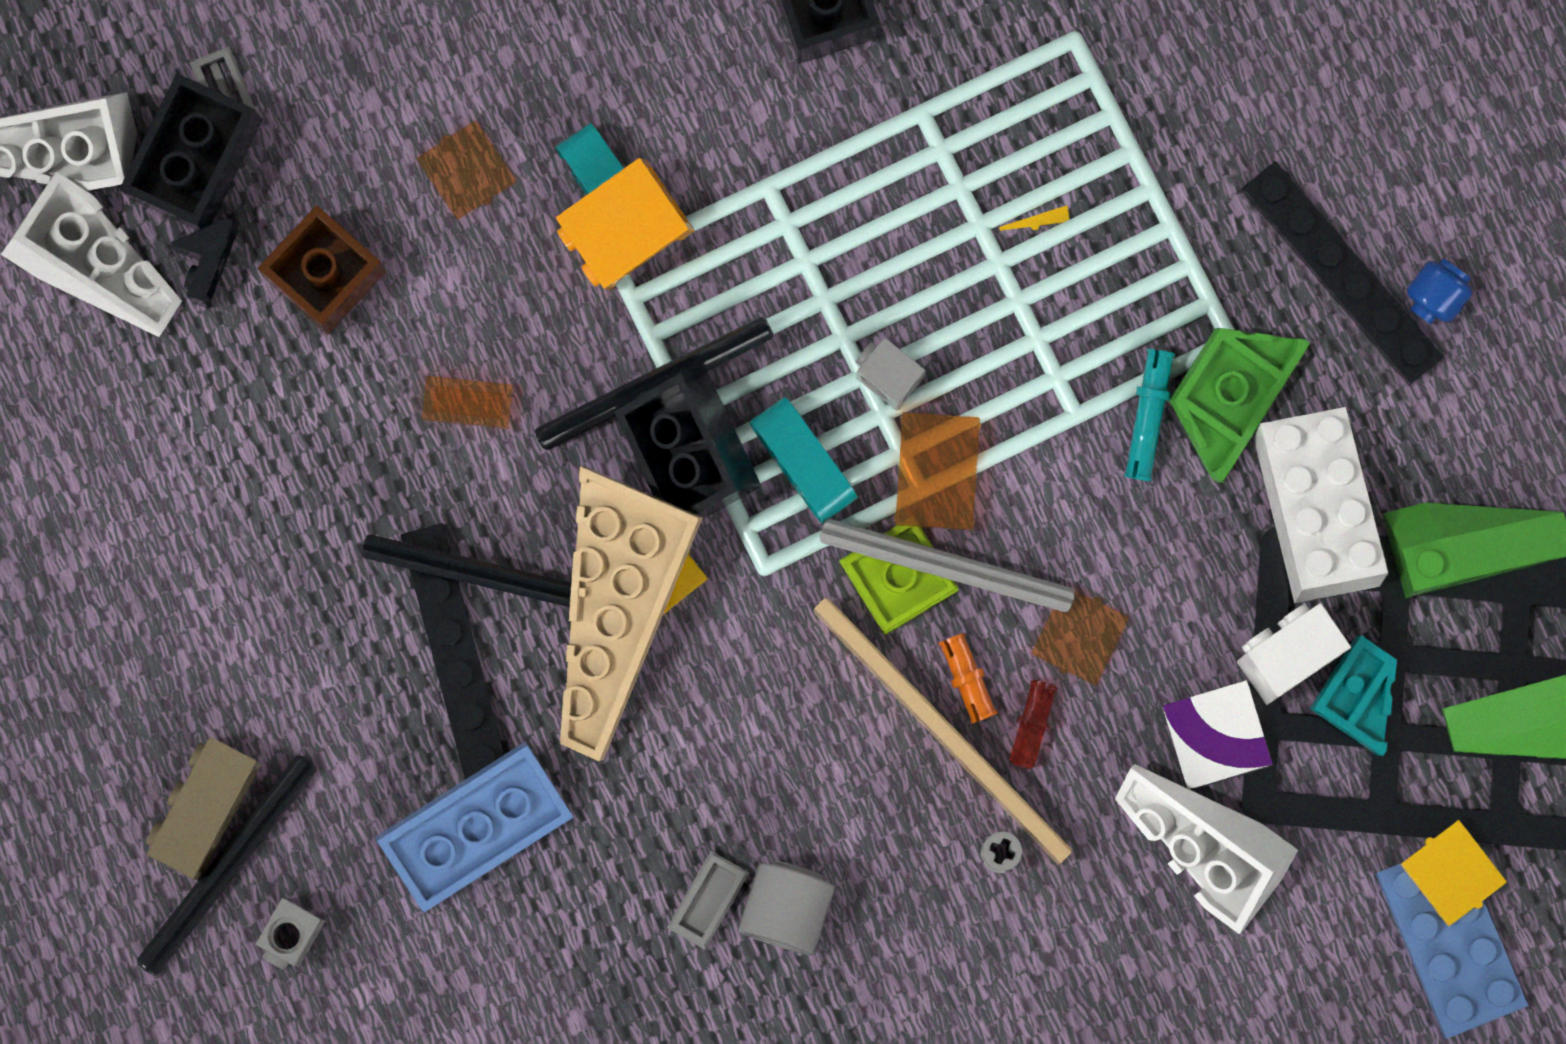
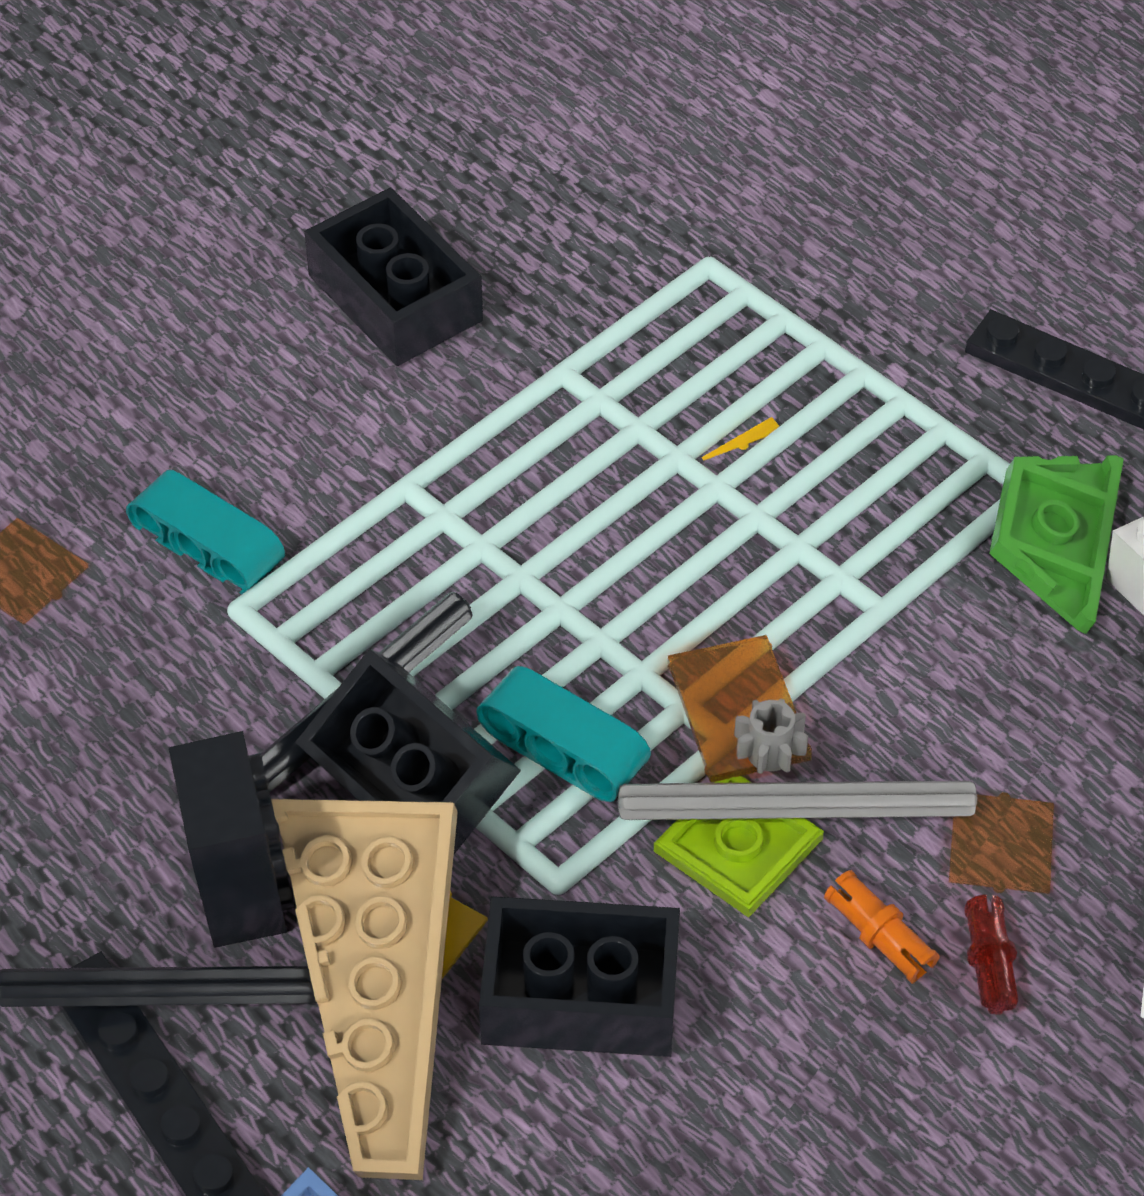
camera: 20 degrees left, 30 degrees down
(467, 402) = (95, 809): clear orange tile -> none
(543, 488) = (232, 838): none -> black brick
(623, 224) = (237, 552): light orange panel -> none
(749, 656) = (579, 976): none -> black brick
(889, 372) = (634, 612): light grey brick -> none
(942, 731) = (889, 999): tan tile -> none
(946, 527) = (771, 735): none -> light grey gear
(1014, 848) = (1030, 1098): light grey bush -> none
(1149, 414) = (967, 556): teal pin -> none

